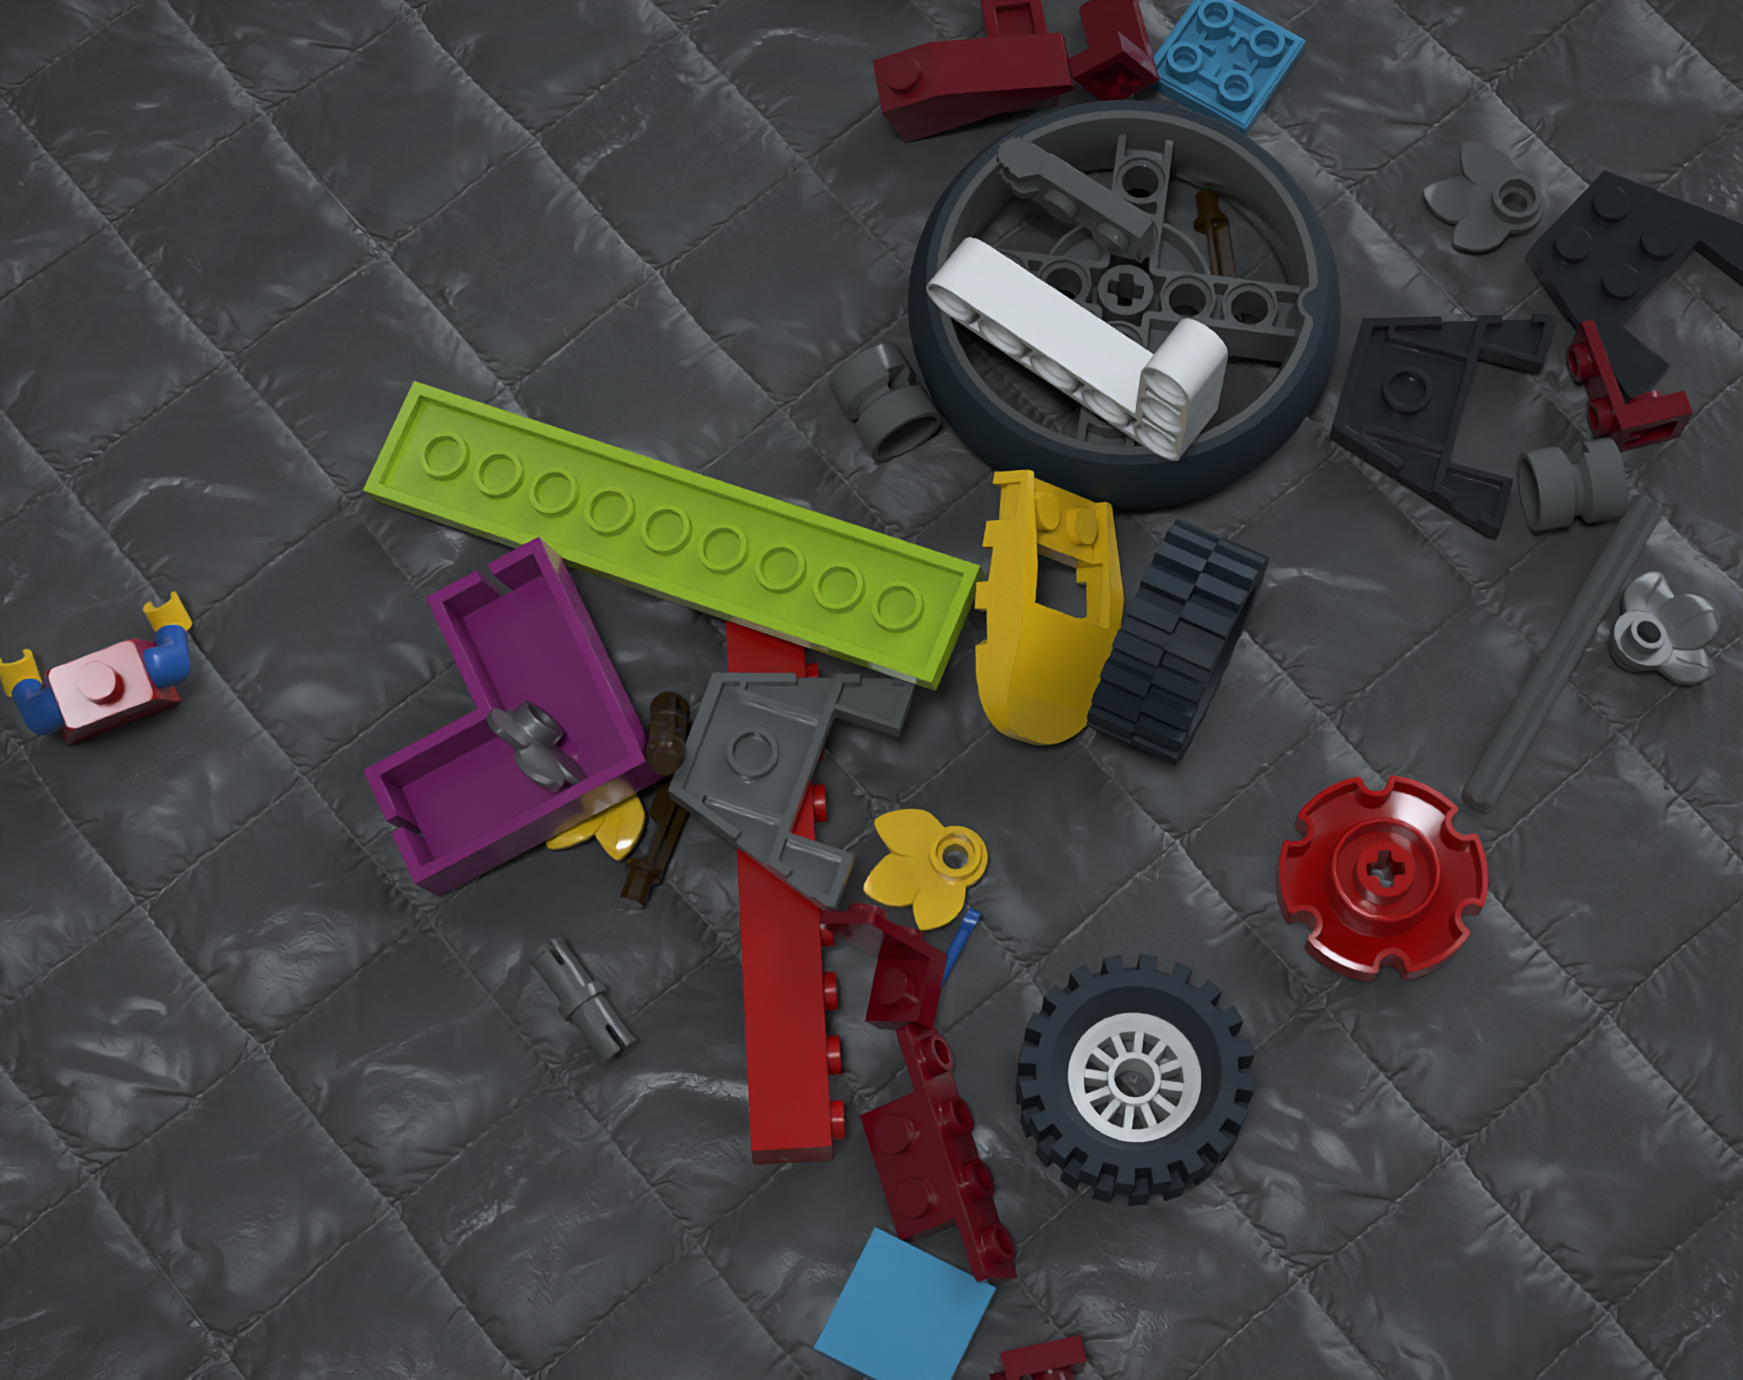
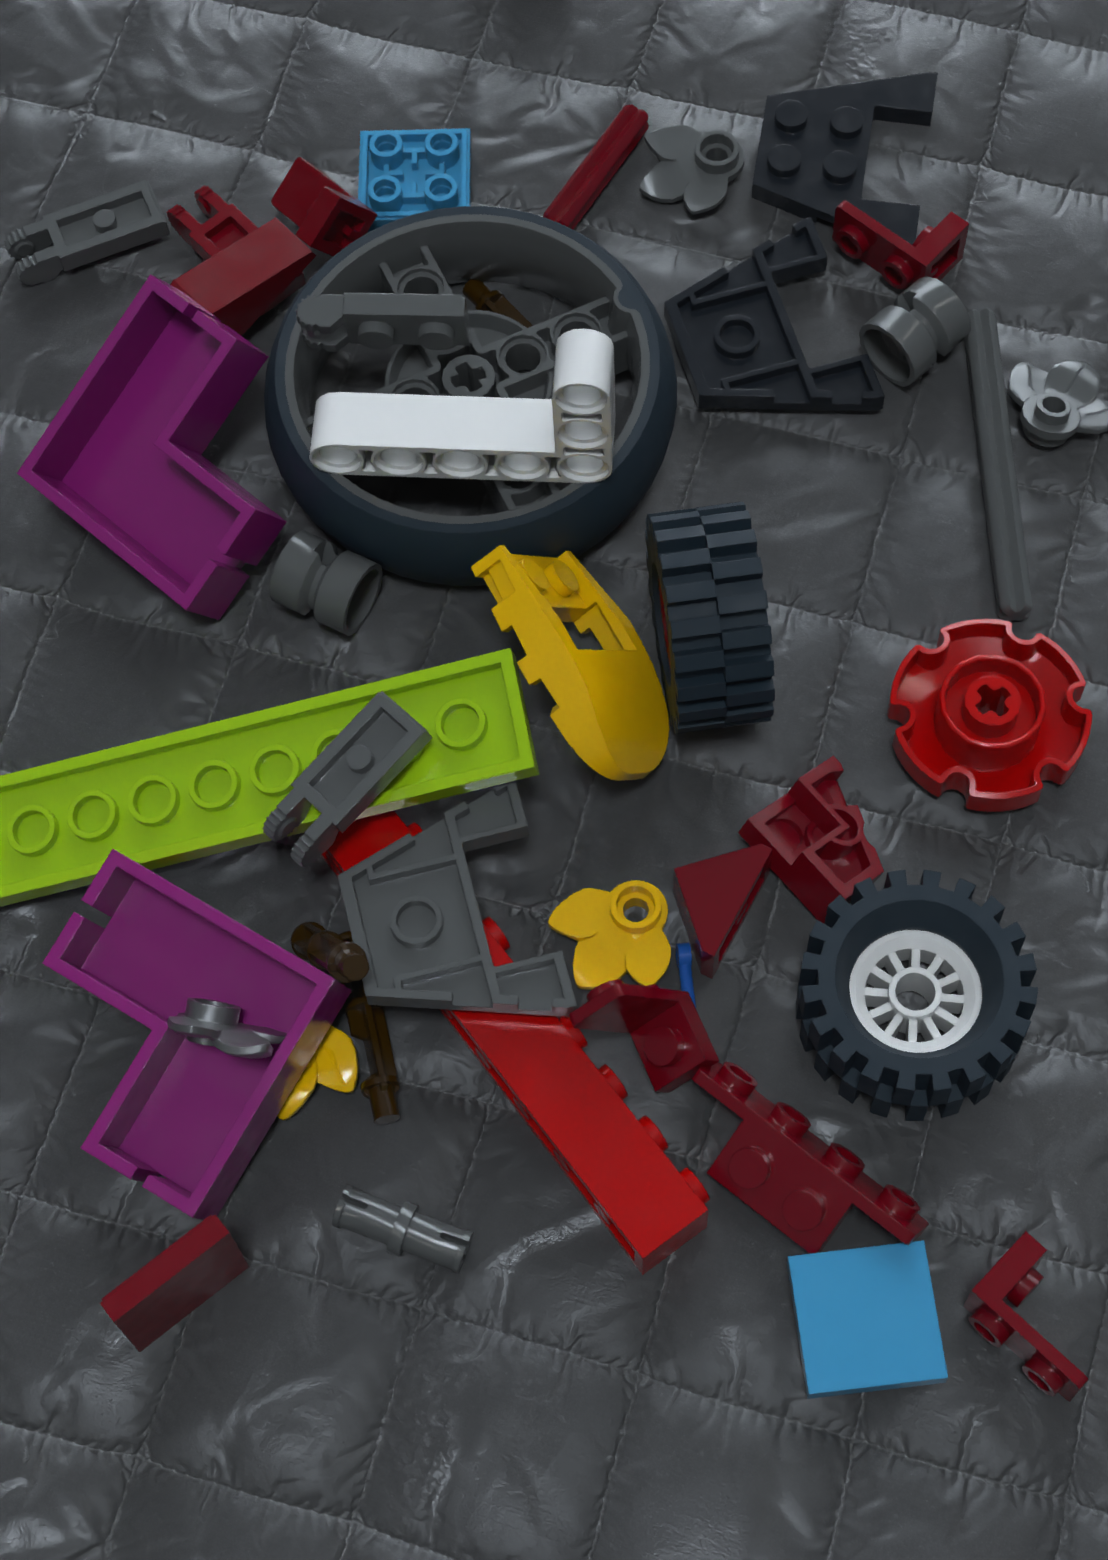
camera: 30 degrees left, 5 degrees down
(369, 928) = (175, 1282): none -> dark red tile
(772, 593) = (347, 776): none -> dark grey hinge
(792, 180) = (132, 445): none -> magenta piece
(1030, 892) = (716, 899): none -> dark red slope
(1152, 892) = (815, 840): none -> dark red slope
(1394, 150) = (598, 167): none -> dark red axle

